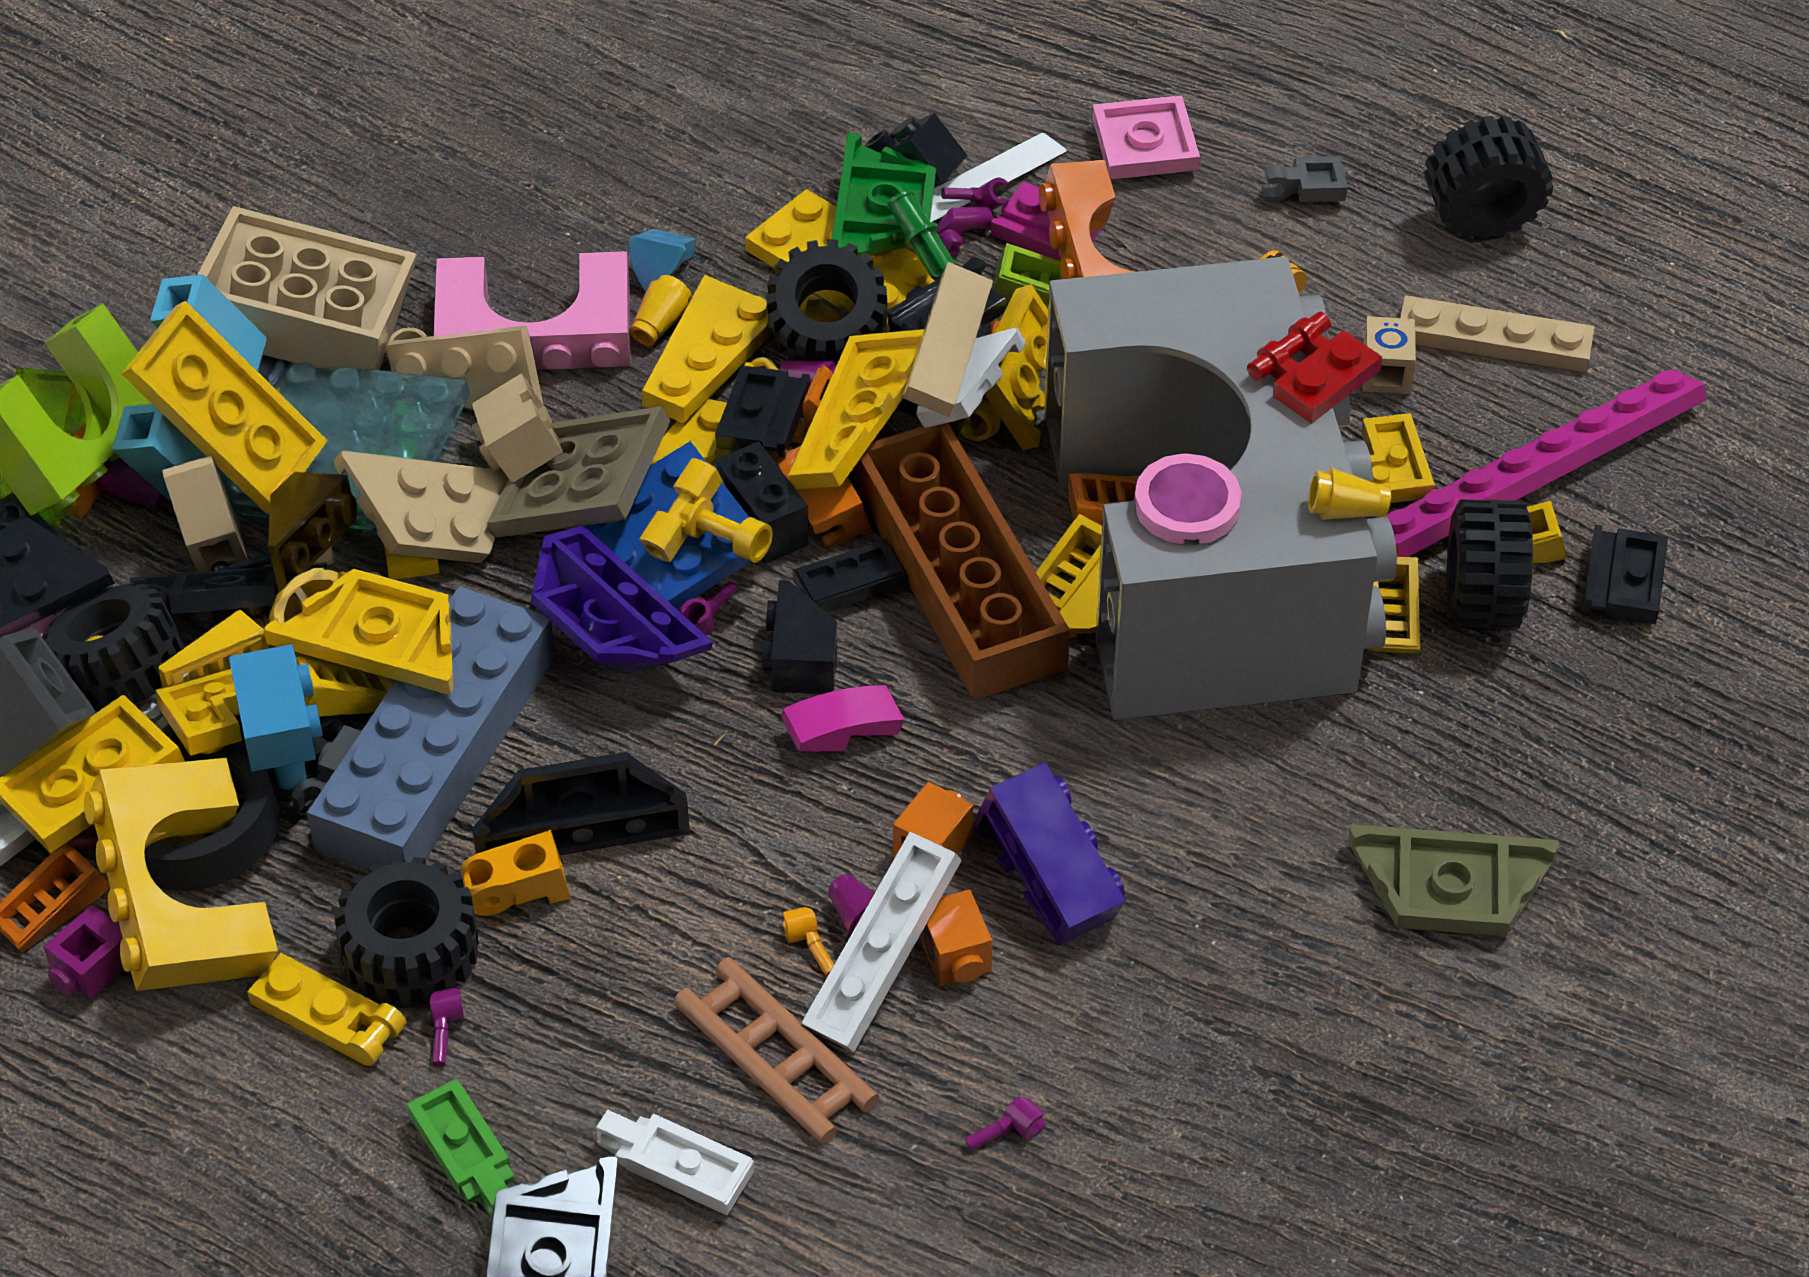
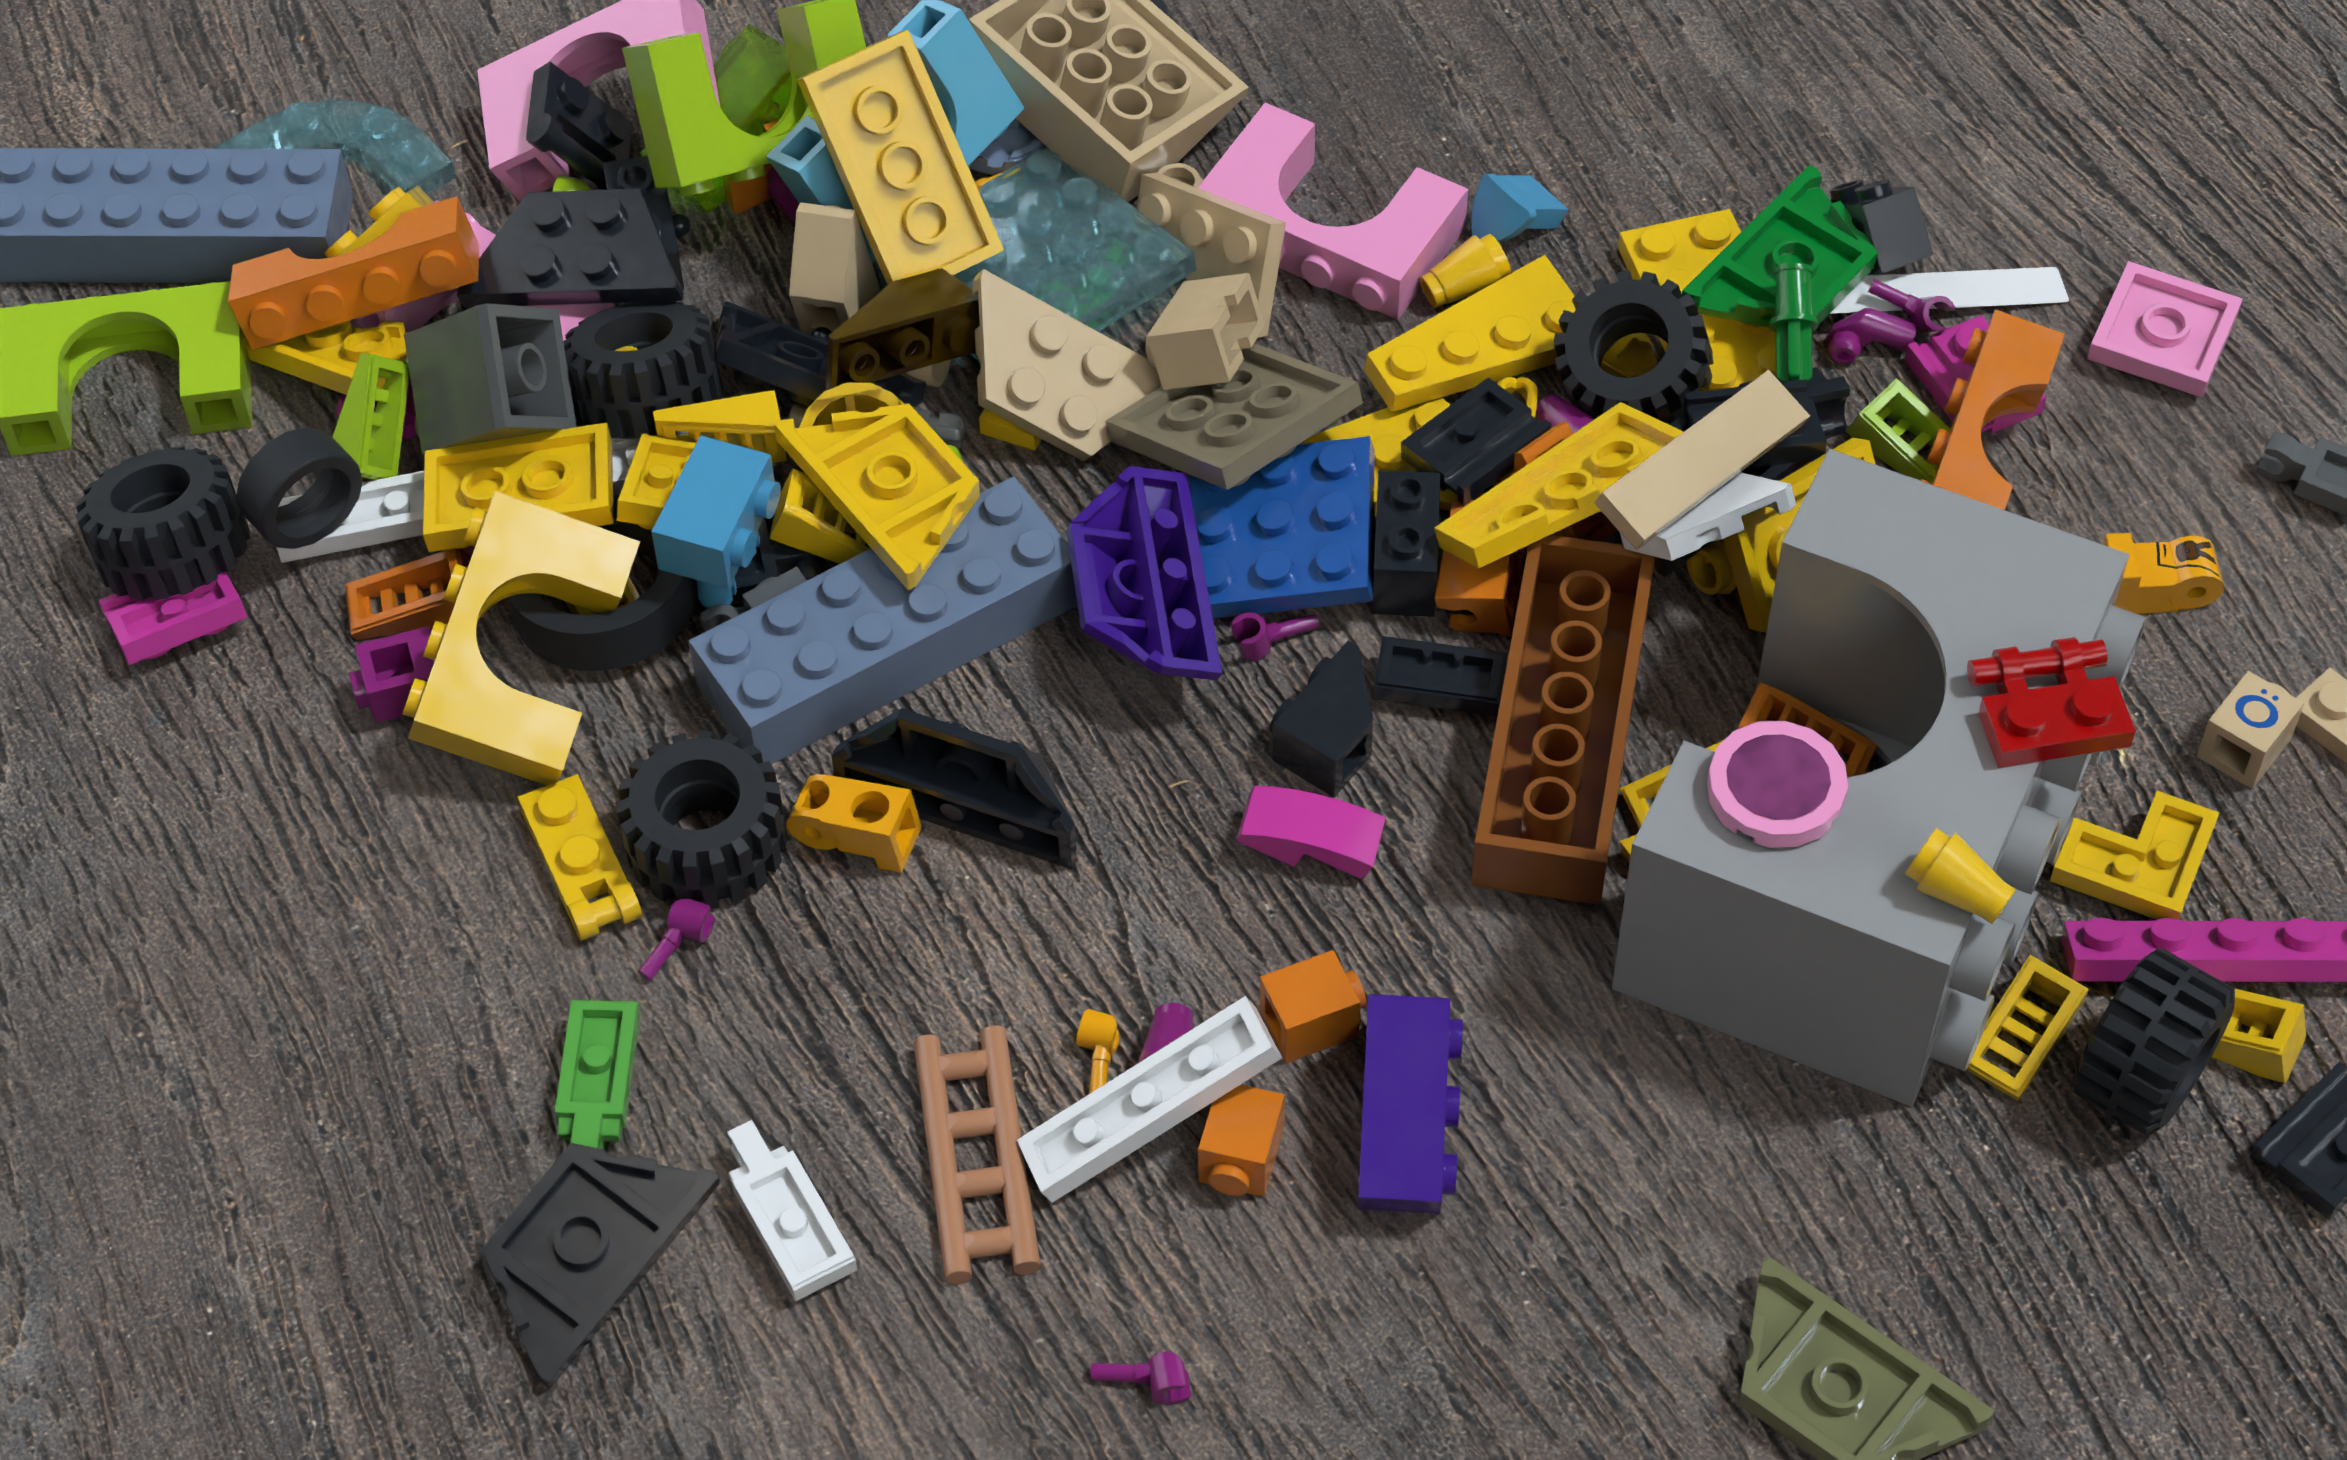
camera: 35 degrees right, 5 degrees up
(693, 515) = (1302, 523): yellow bar -> none

